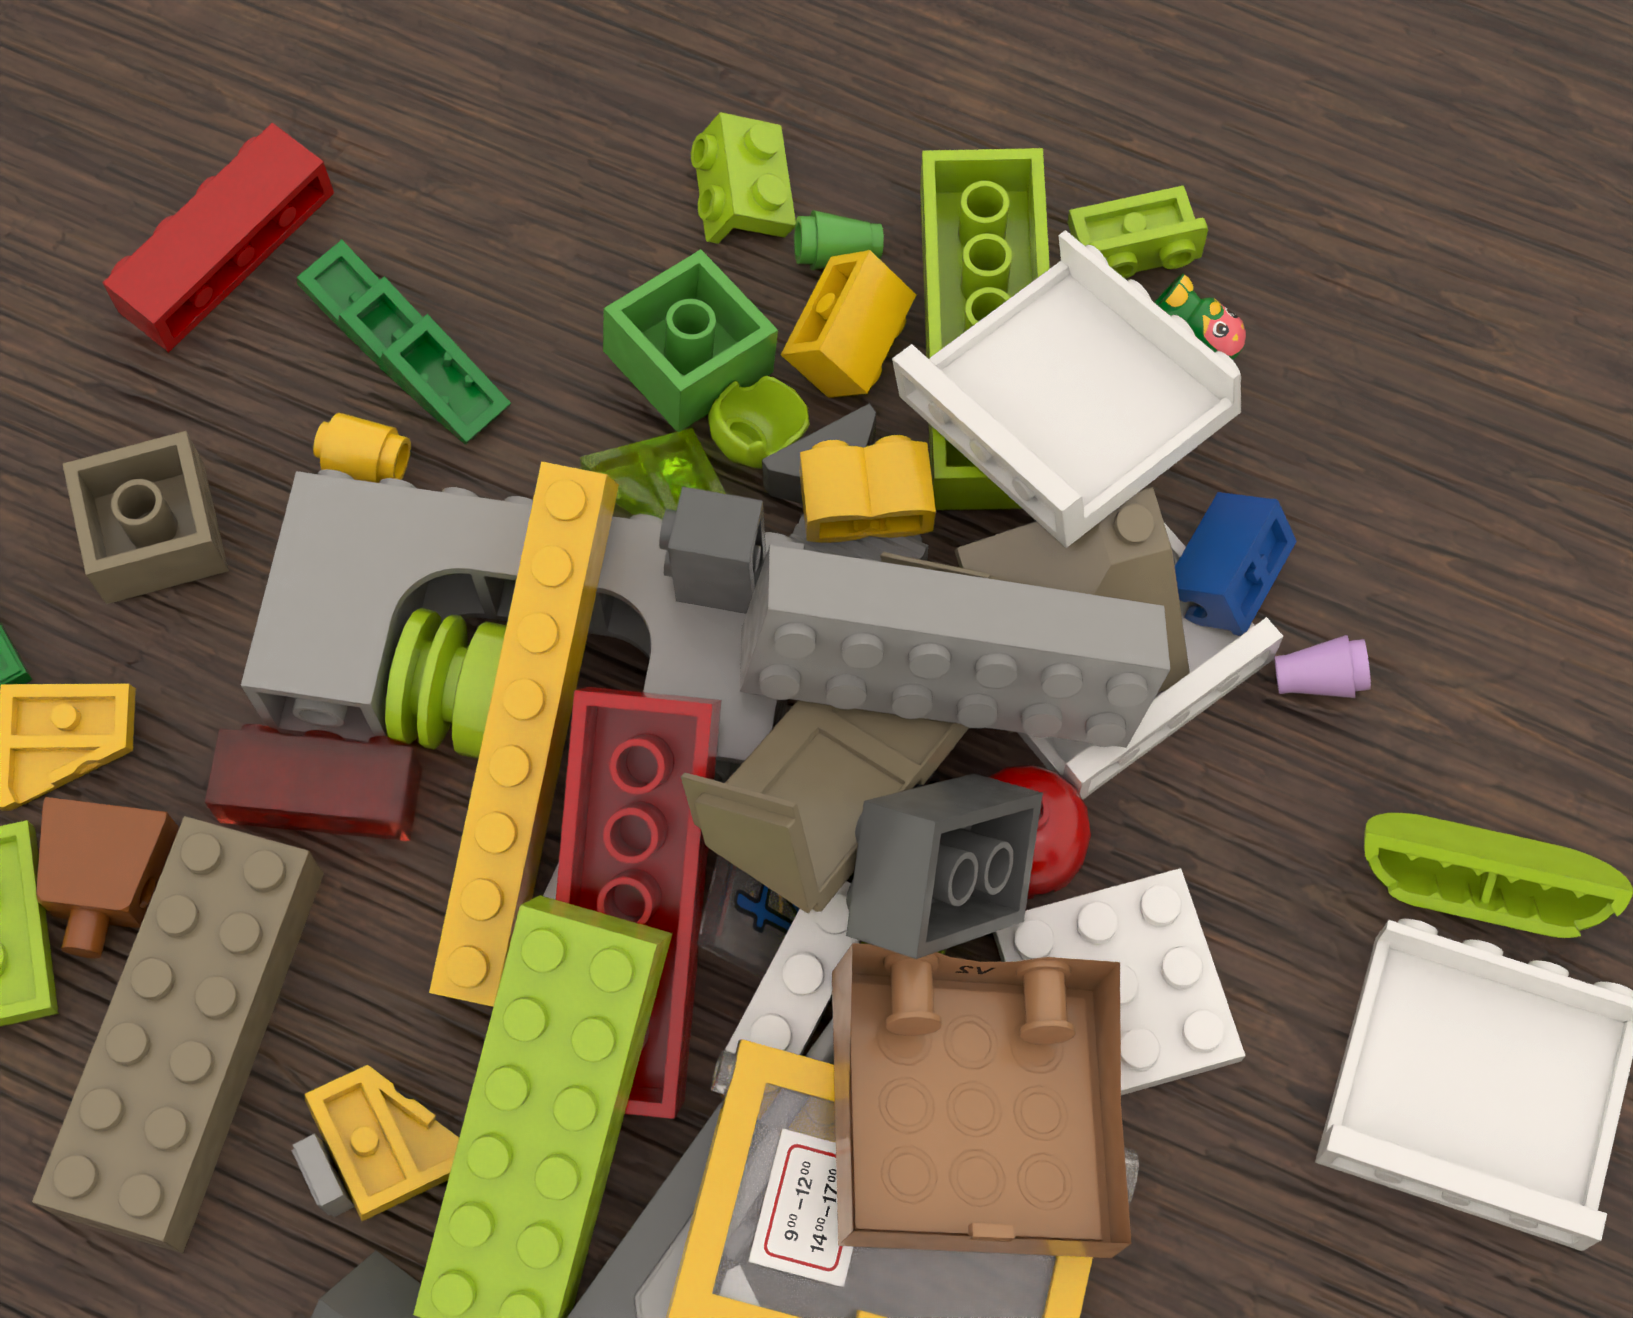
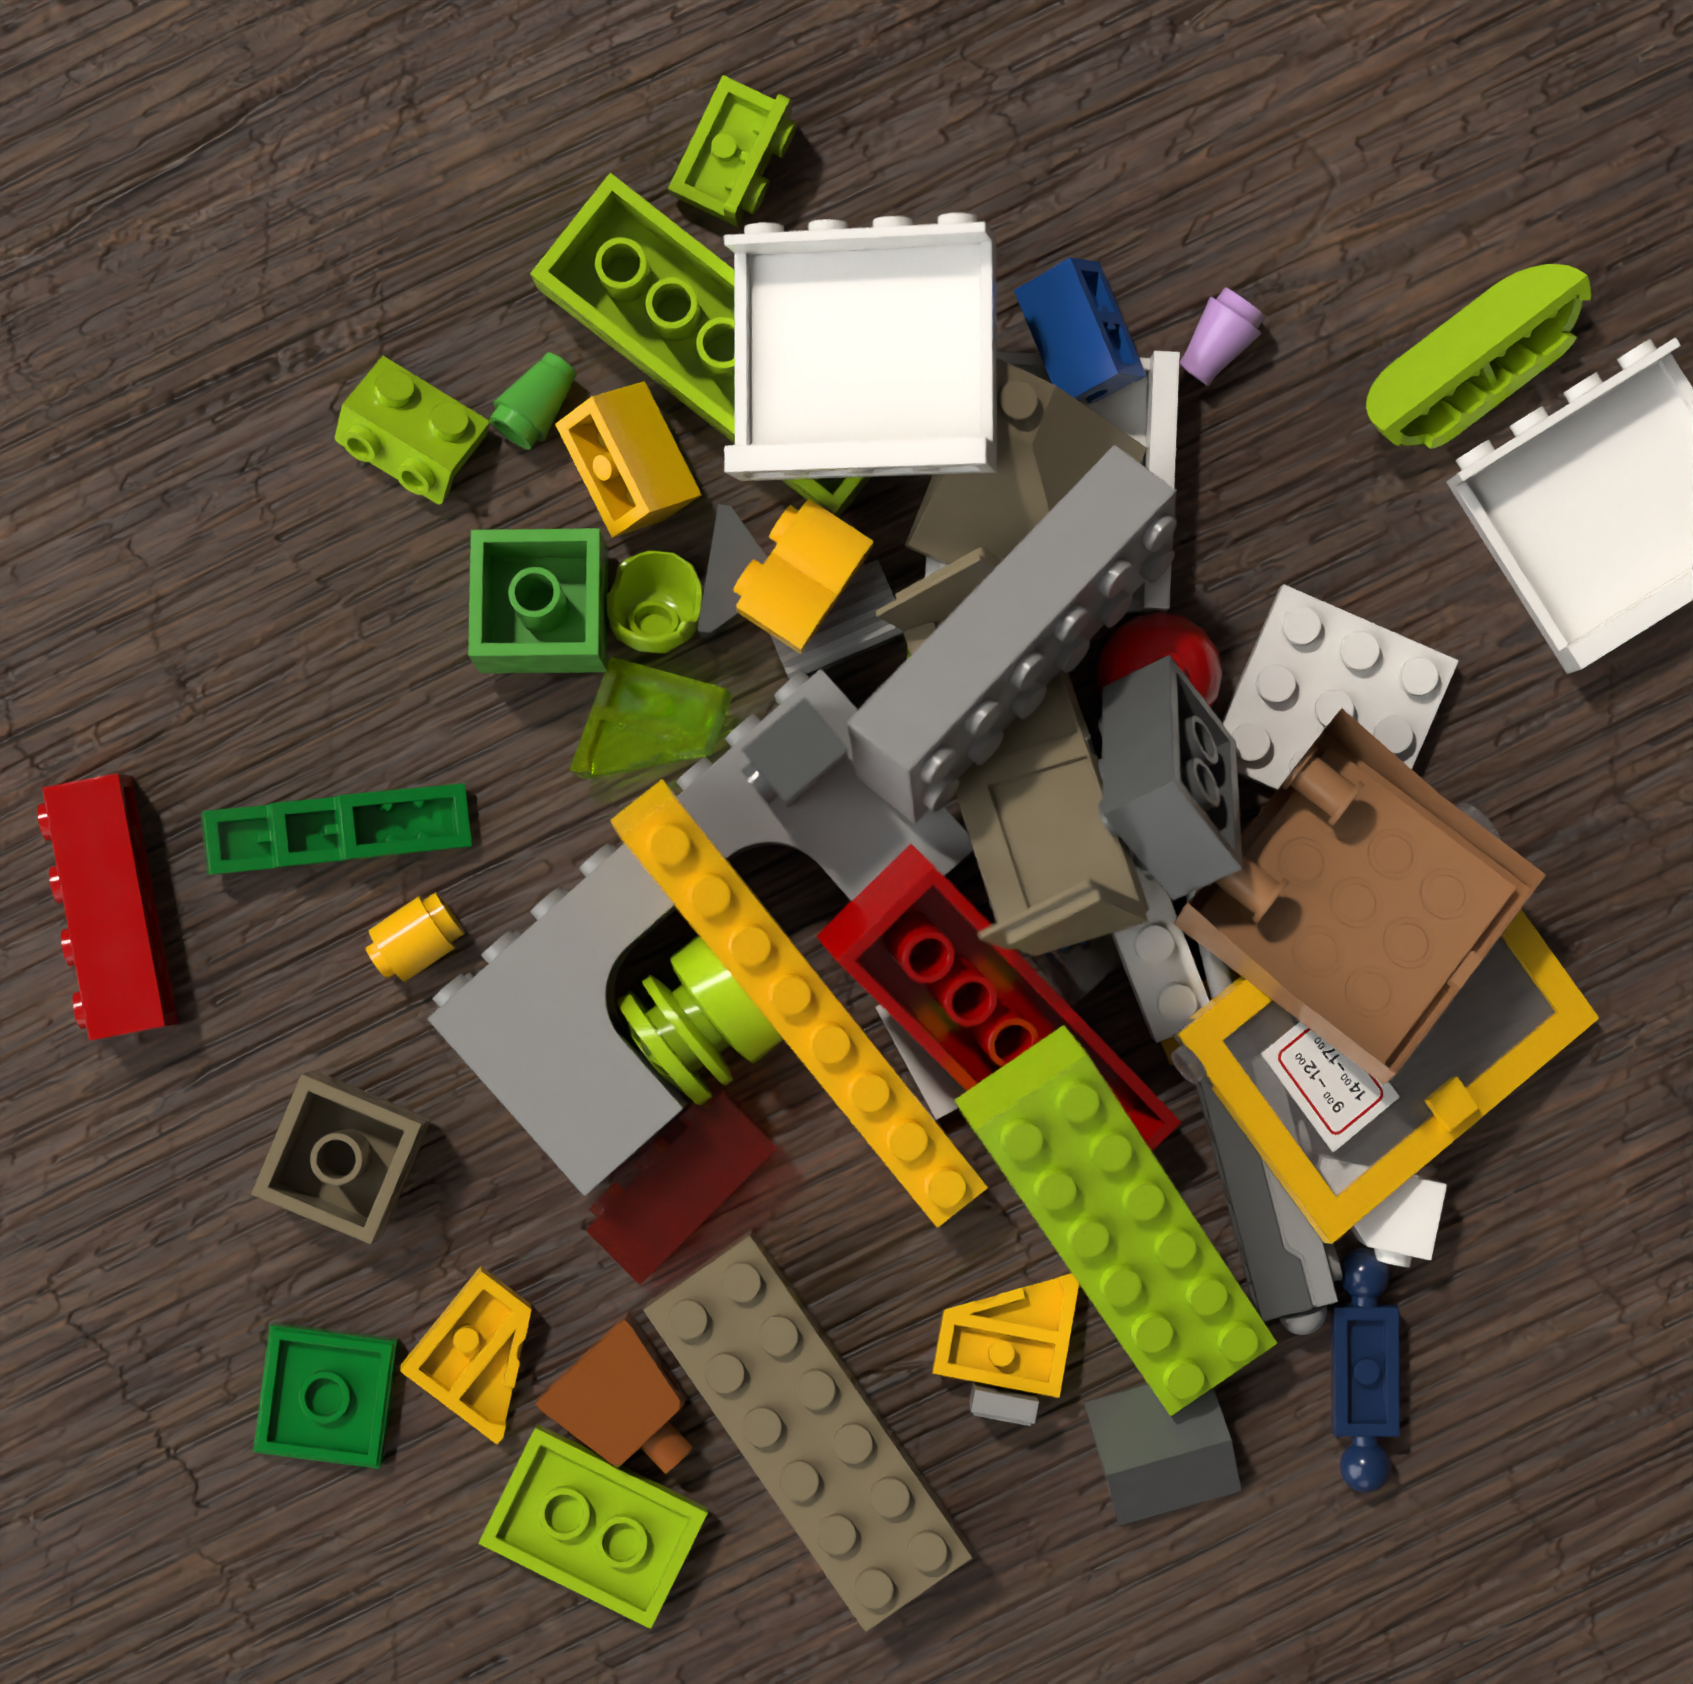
camera: 45 degrees left, 20 degrees up
(1208, 319) = (861, 173): animal -> none

